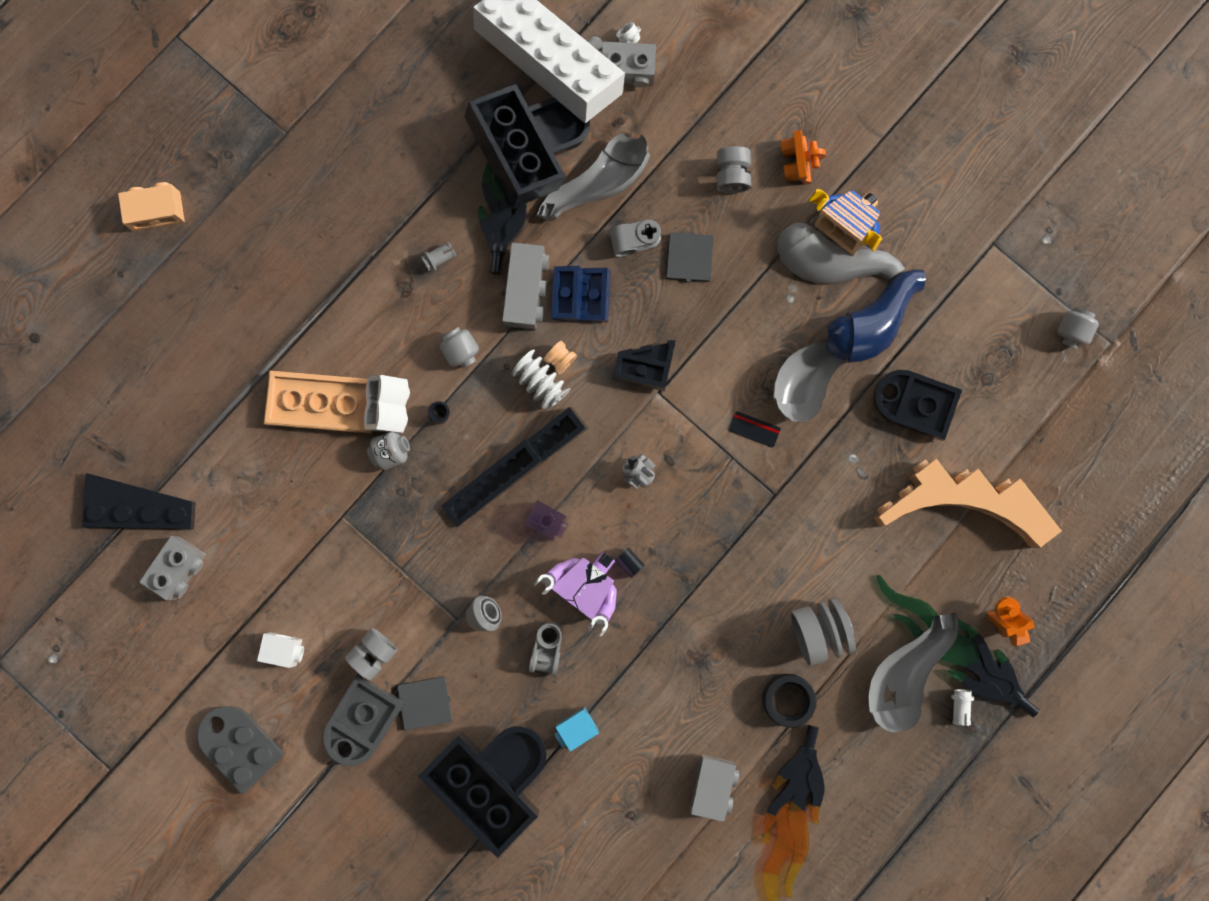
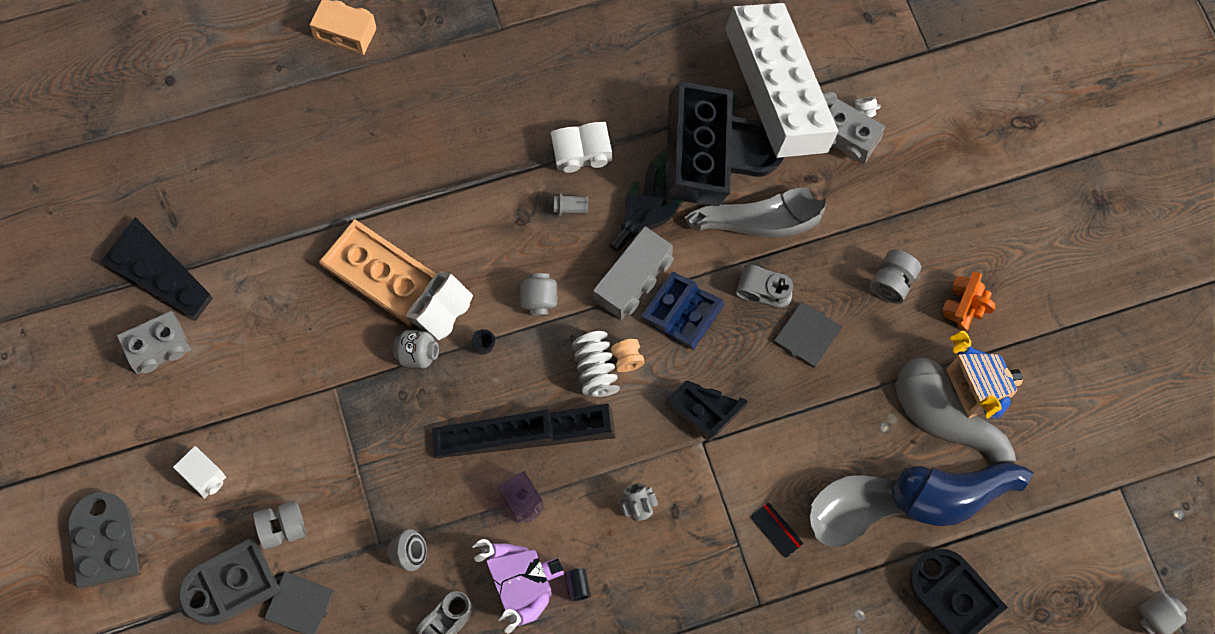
camera: 30 degrees right, 15 degrees down
(417, 201) = (581, 146): none -> white brick

